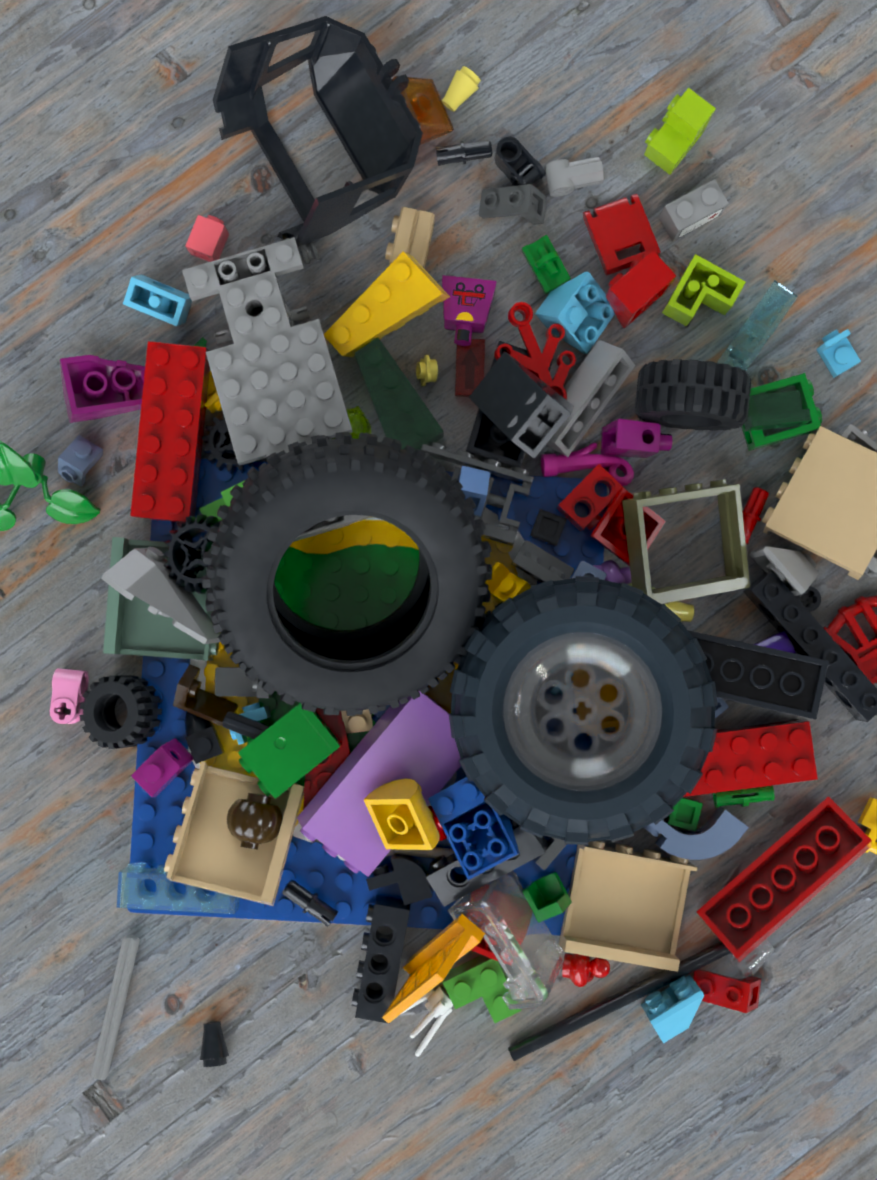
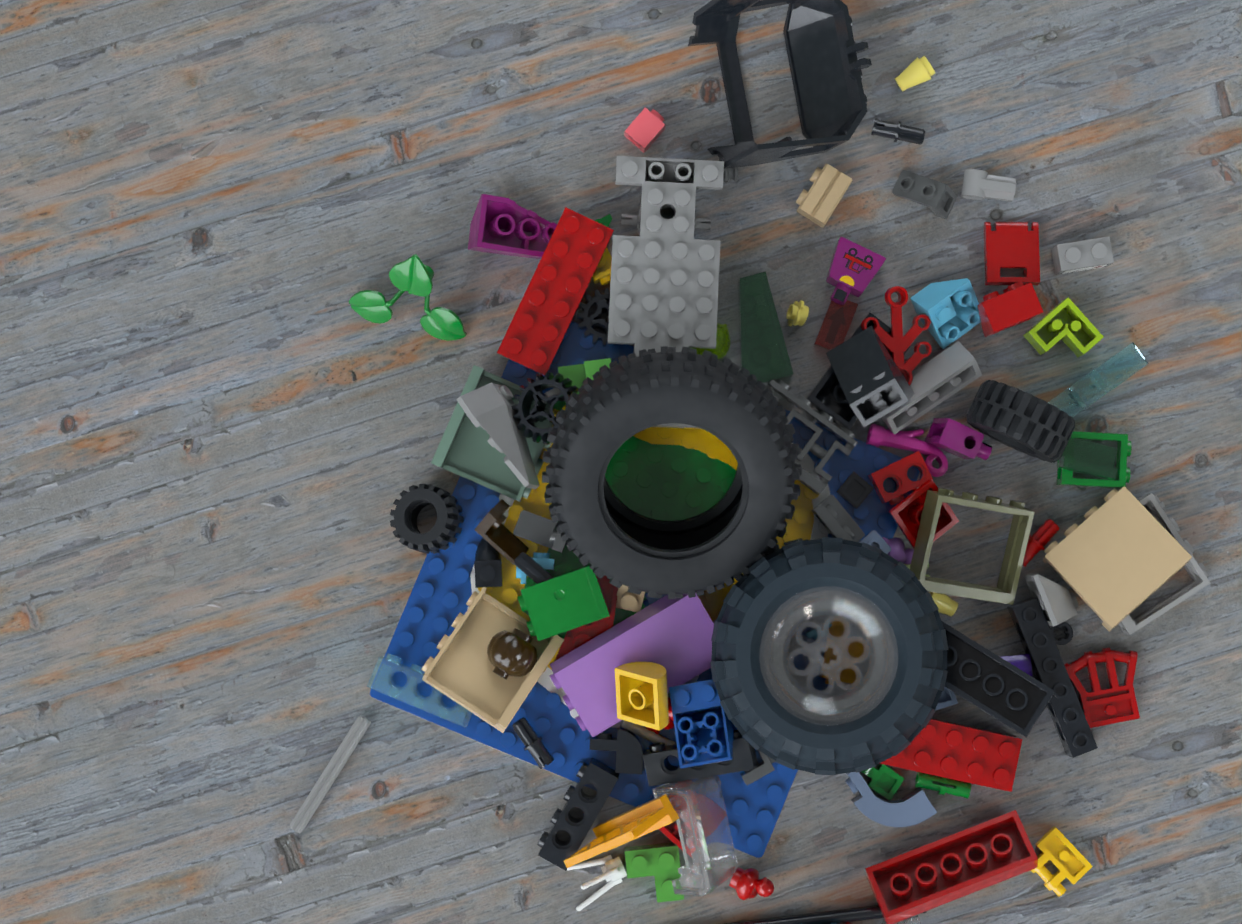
camera: 15 degrees right, 0 degrees up
(68, 692) = (387, 483): bright pink piece -> none
(78, 460) = (463, 285): sand blue bracket -> none
(158, 300) = (584, 169): medium azure brick -> none
(162, 767) = (446, 580): magenta torso -> none
(213, 1045) = (404, 837): black cone -> none
(386, 305) = (786, 245): yellow wedge -> none
(427, 108) = (879, 80): clear orange slope -> none
(475, 485) = (805, 432): medium blue panel -> none
(505, 584) = (801, 526): yellow bracket -> none
(522, 168) = (944, 161): black piece -> none
(546, 264) = (935, 258): green hips -> none
(547, 897) = (740, 810): green panel -> none
(626, 905) = (806, 842): tan panel -> none
(682, 128) = (1098, 179): lime brick -> none
(838, 352) = (1166, 426): medium azure bracket -> none

